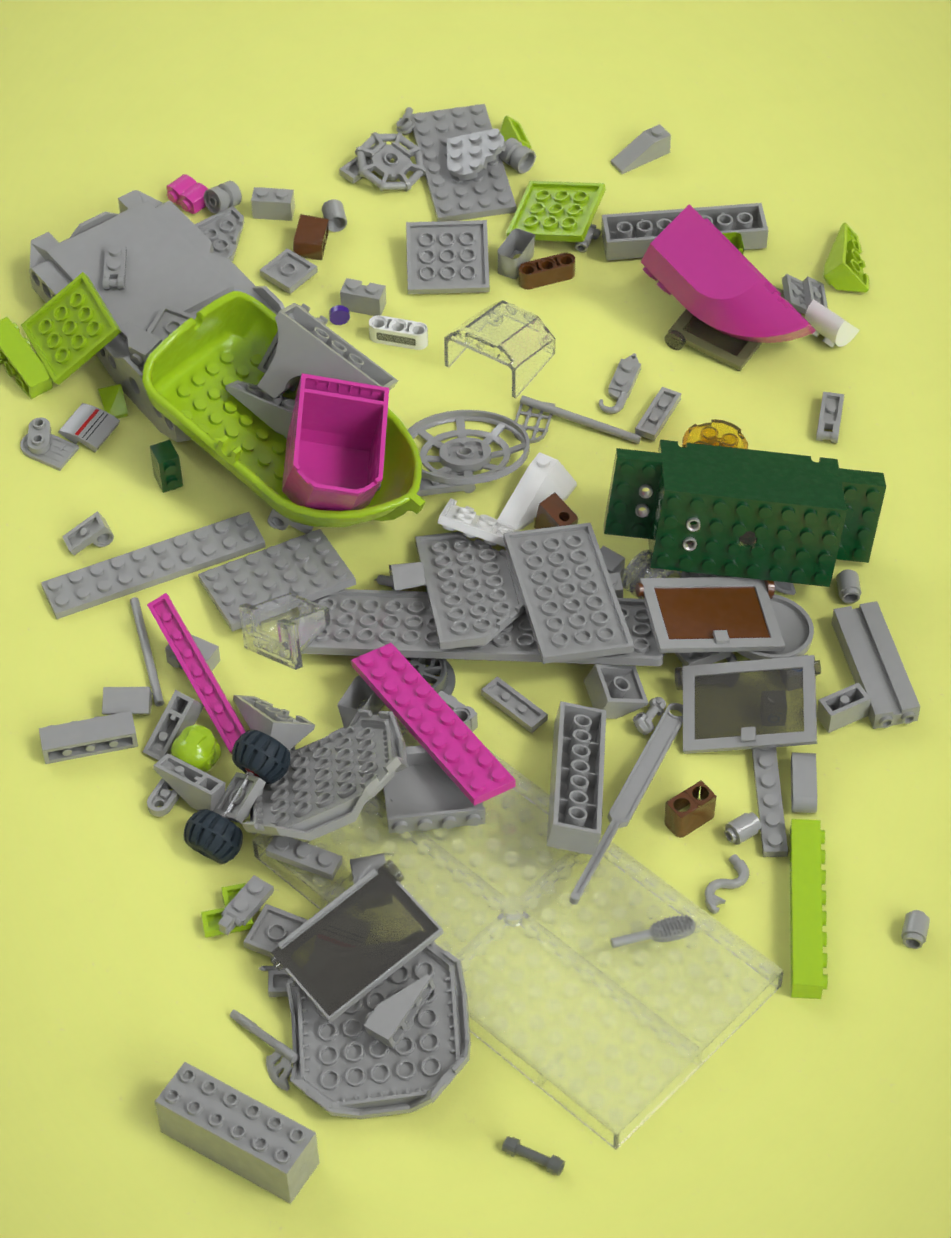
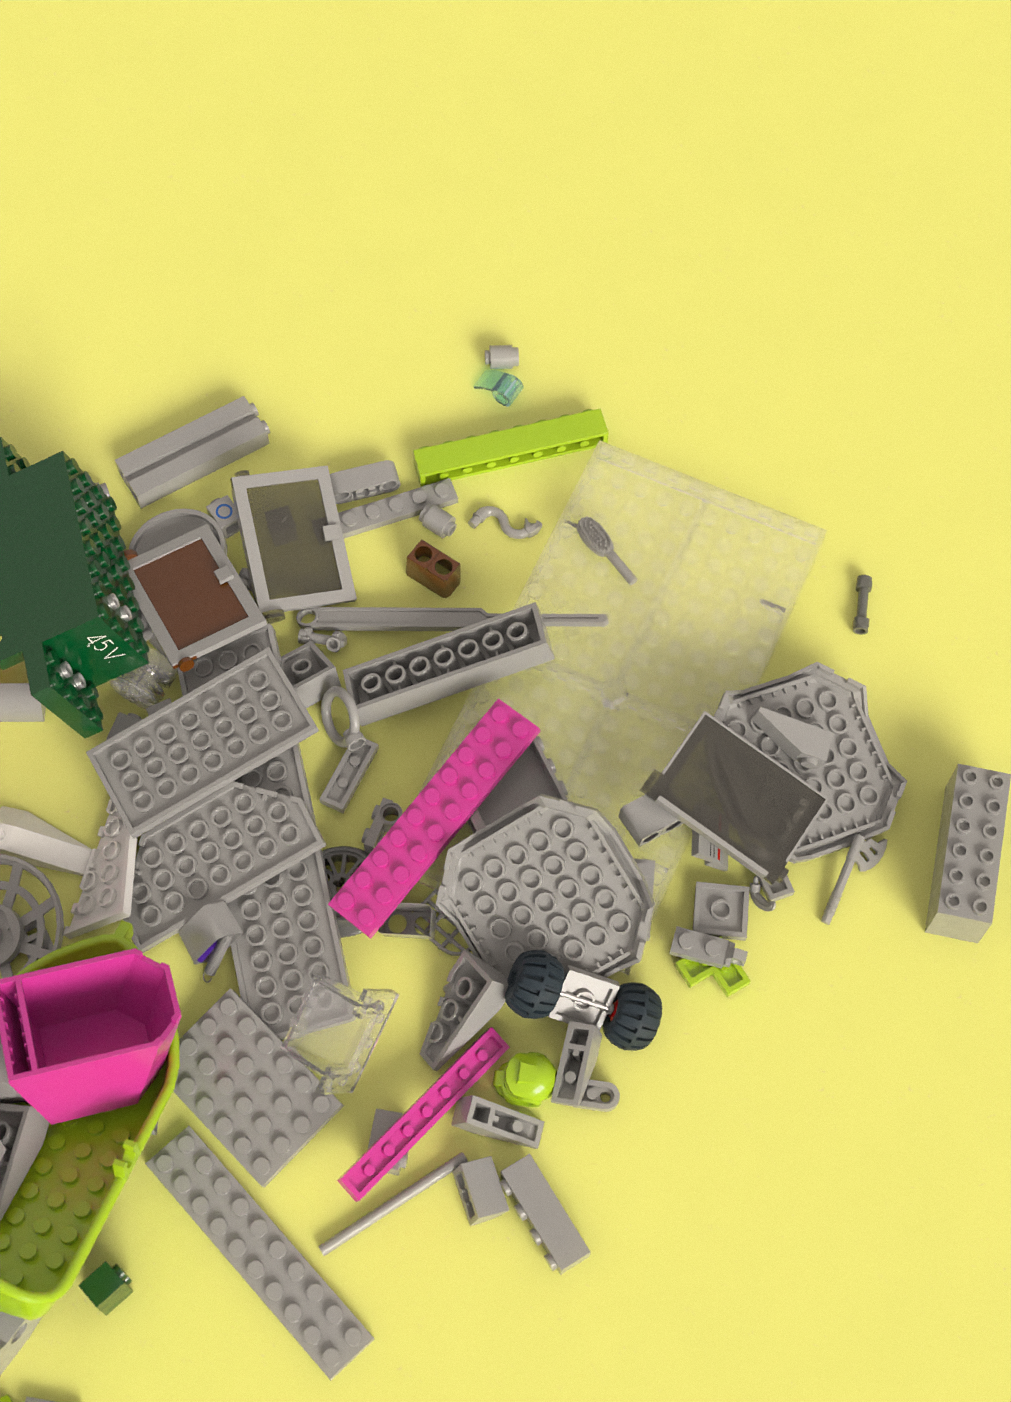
camera: 110 degrees left, 15 degrees up
(92, 530) = (239, 1350): light grey plate -> none
(552, 701) = (352, 737): none -> light grey piece
(554, 513) = (78, 800): reddish brown torso -> none
(843, 707) = (259, 457): light grey brick -> none
(879, 918) = (503, 386): none -> clear light blue panel

